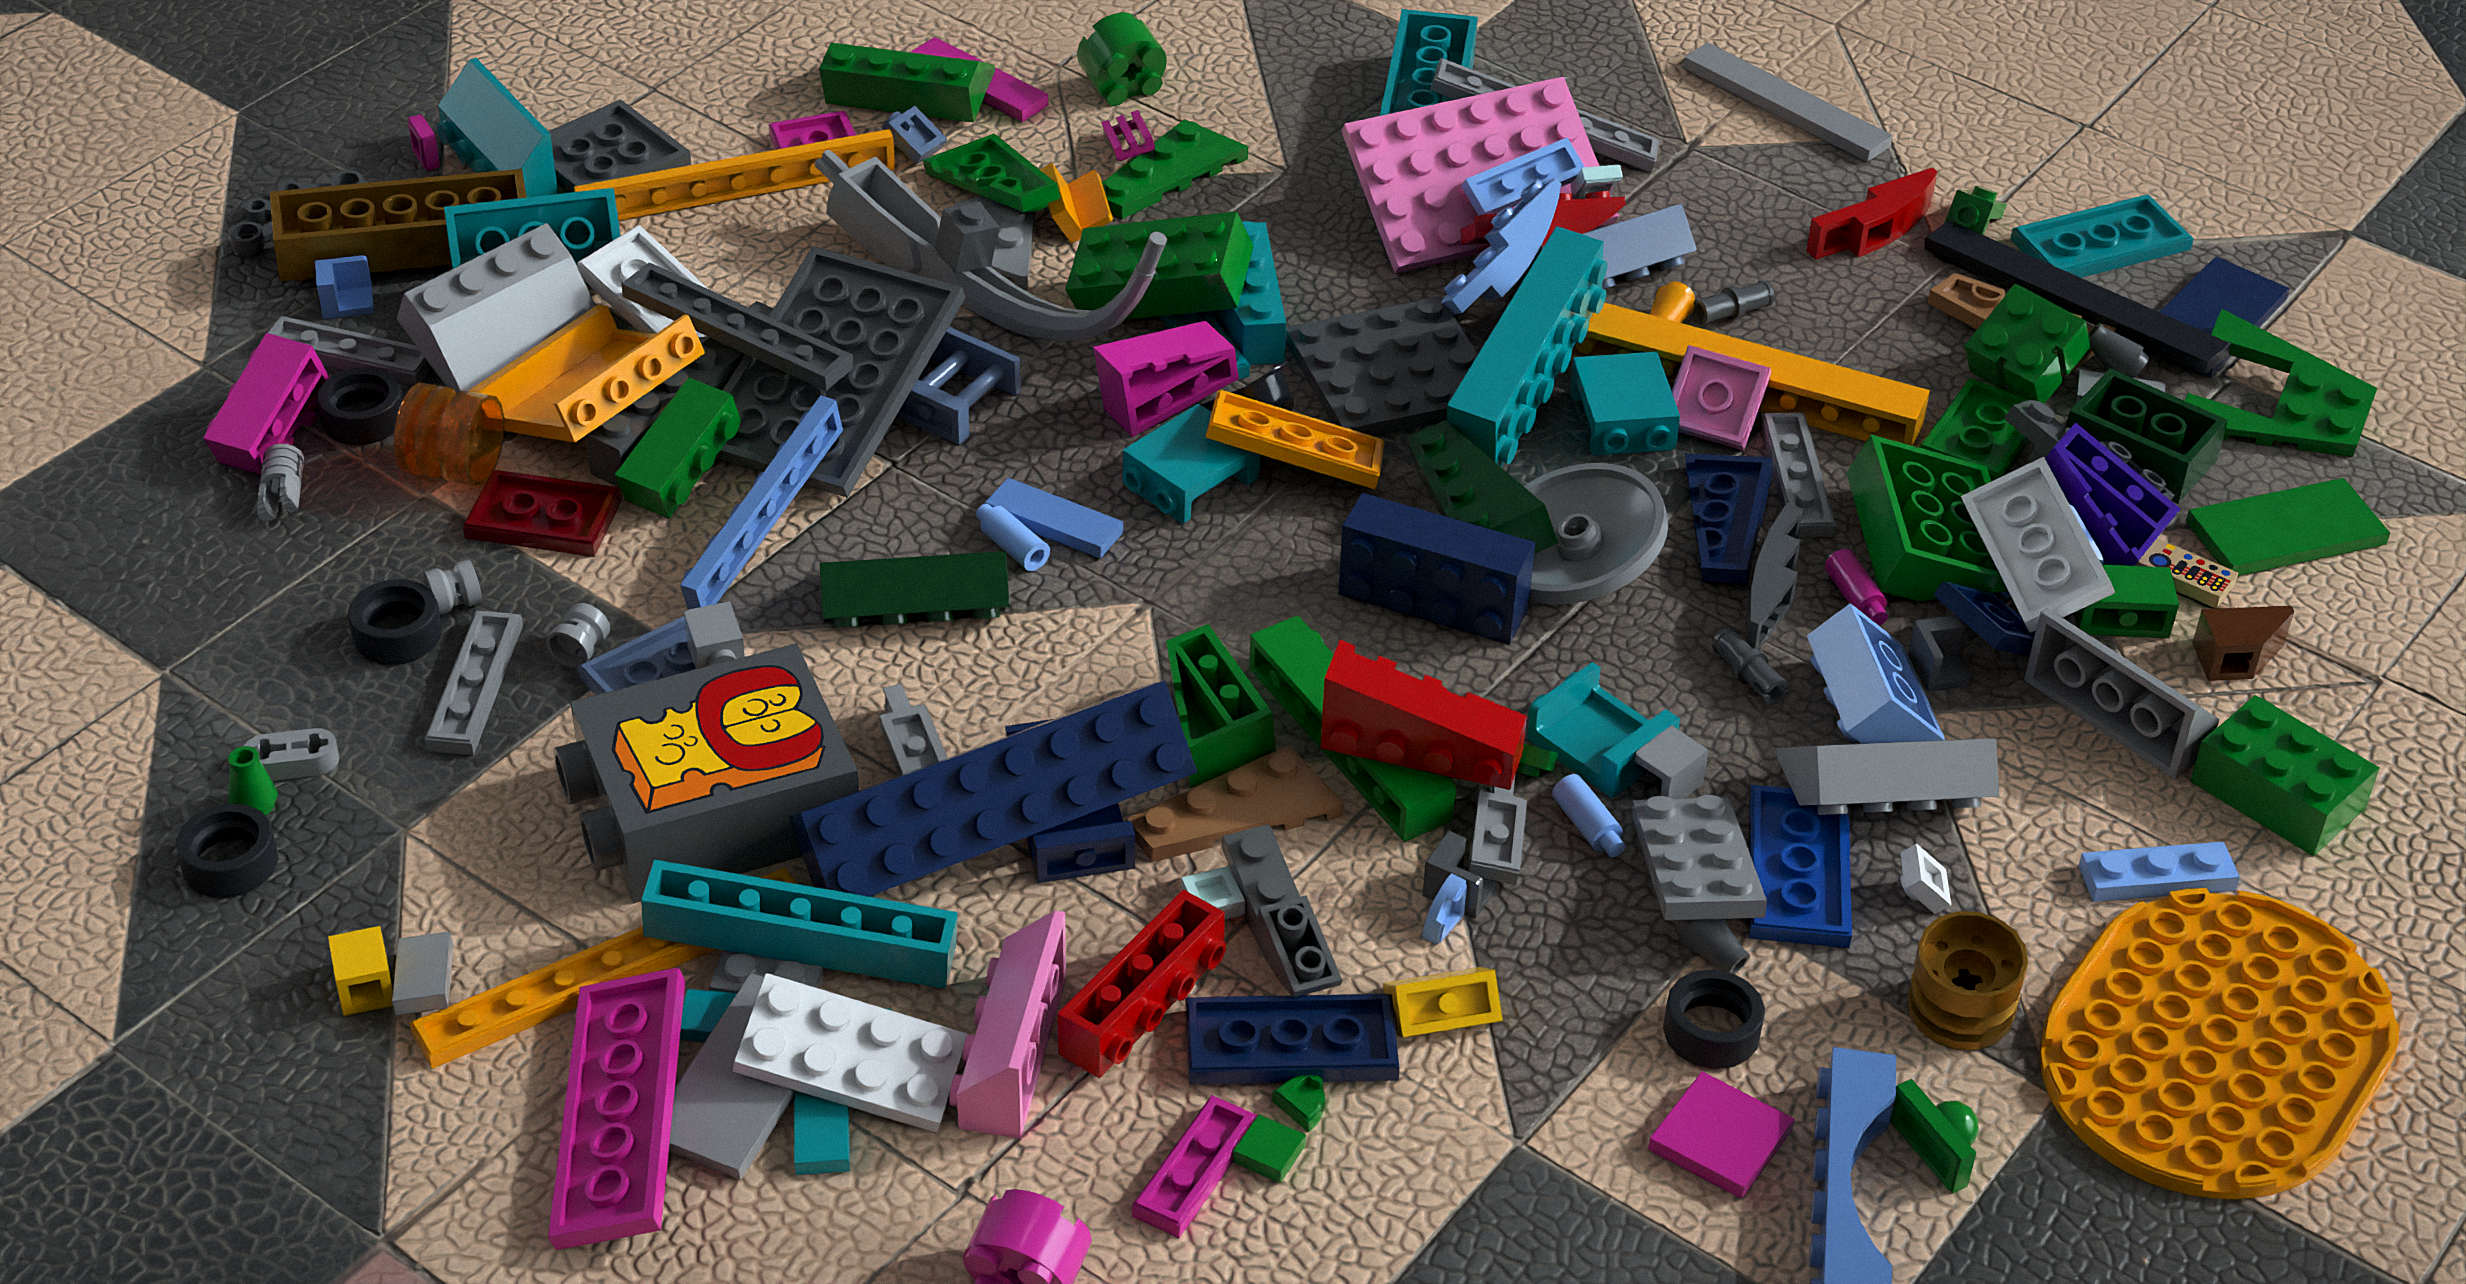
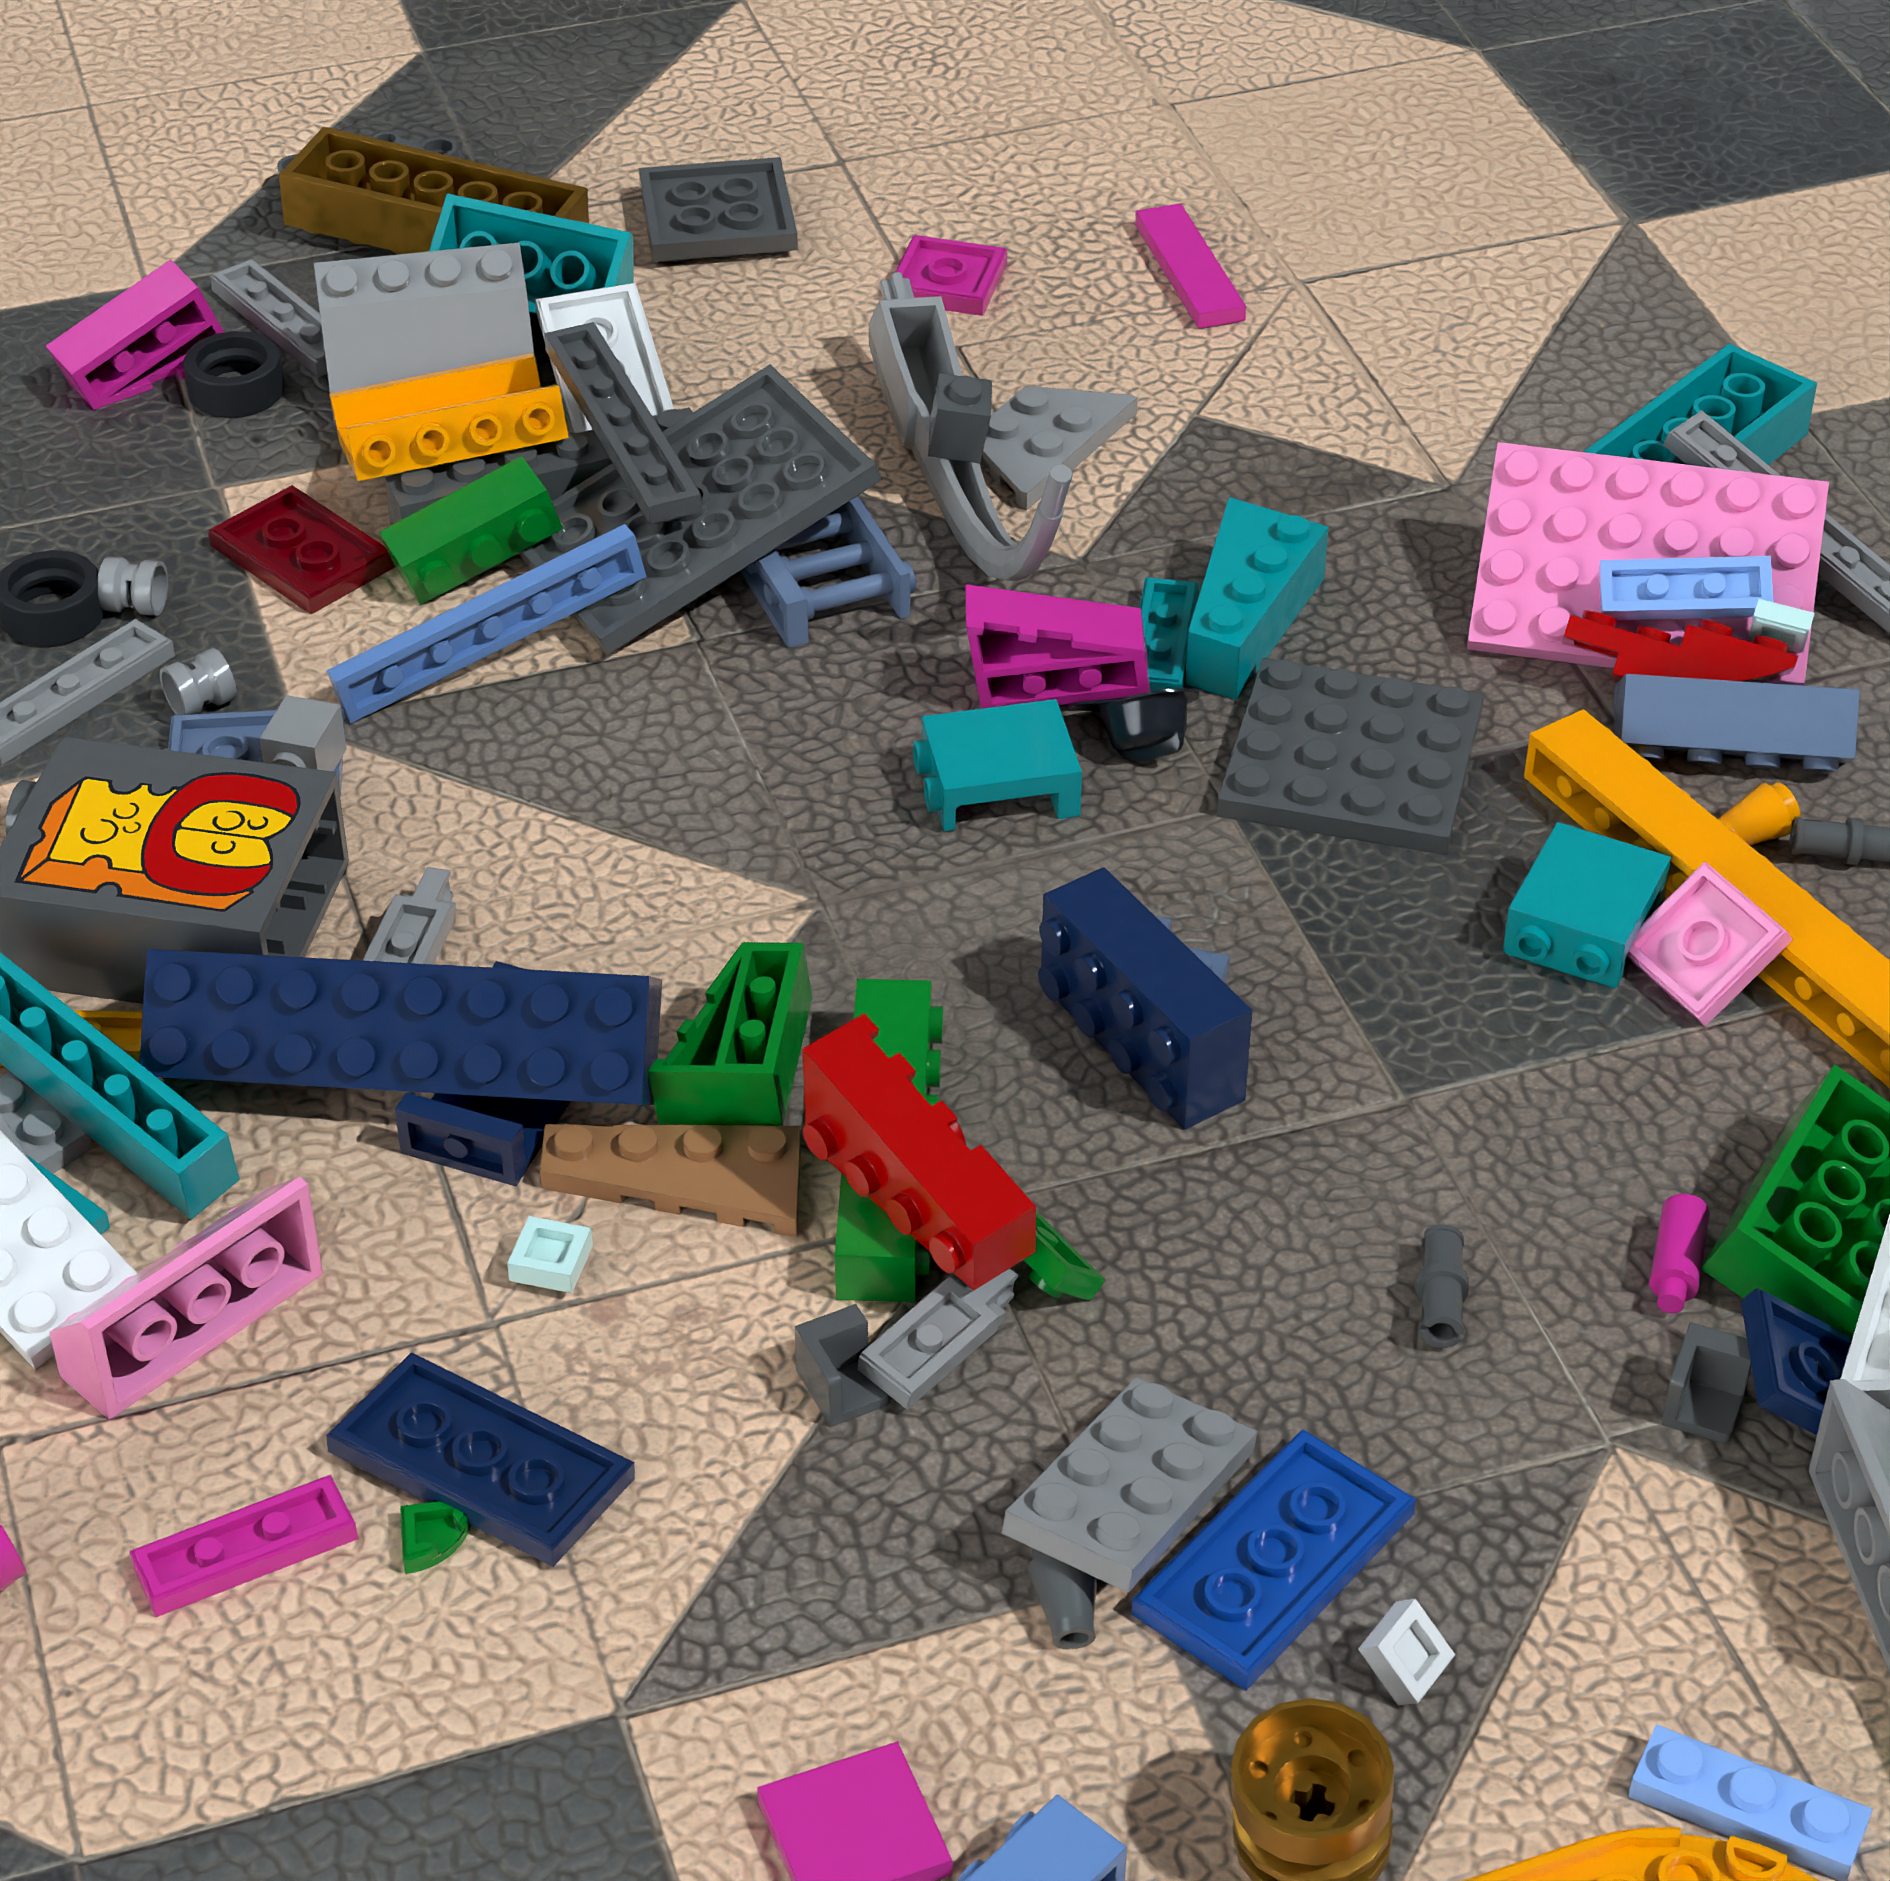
camera: 35 degrees right, 0 degrees up
(280, 480) = (87, 418): light grey hinge -> none
(344, 287) = (329, 239): medium blue panel -> none
(423, 142) = (548, 135): dark pink tile -> none
(449, 434) = (263, 428): clear orange wheel -> none
(495, 130) = (610, 150): teal slope -> none
(739, 175) = (814, 276): light orange tile -> none
(904, 80) = (1095, 237): green slope -> none
(914, 134) = (1050, 298): sand blue bracket -> none
(914, 587) = (568, 775): dark green slope -> none
(995, 172) = (1091, 368): green wing -> none
(1013, 537) = (733, 767): light blue cylinder -> none
(1058, 518) = (802, 766): medium blue tile -> none
(1080, 203) = (1150, 434): light orange panel -> none
(1122, 58) = (1352, 291): green brick -> none
(1125, 127) = (1294, 379): dark pink tile -> none
(1141, 984) = (362, 1309): red brick -> none
(1176, 160) = (1304, 432): green wing -> none
(1196, 272) = (1155, 531): green brick -> none
(1269, 1148) = (336, 1568): green tile -> none
(1278, 915) = (595, 1309): dark grey slope -> none
(1296, 439) = (1132, 784): light orange tile -> none
(1445, 1001) = (682, 1500): yellow panel -> none
(1446, 909) = (787, 1397): light blue tile -> none
(1475, 488) = (1271, 931): dark green wedge -> none
(1514, 244) = (1608, 652): light blue slope -> none
(1530, 345) = (1482, 787): teal brick -> none
(1589, 815) = (1067, 1369): light blue cylinder -> none
(1594, 731) = (1177, 1277): teal panel -> none
(1606, 531) = (1365, 1030): light grey dish -> none
(1676, 761) = (1216, 1357): light grey panel -> none
(1708, 1047) = (968, 1732): black tyre -> none
(1727, 512) = (1601, 1085): dark blue wing -> none
(1774, 577) = (1555, 1200): dark grey slope -> none
(1798, 471) = (1740, 1084): light grey tile -> none
(1871, 681) = (1578, 1382): light blue slope -> none
(1891, 773) = (1478, 1497): light grey slope -> none

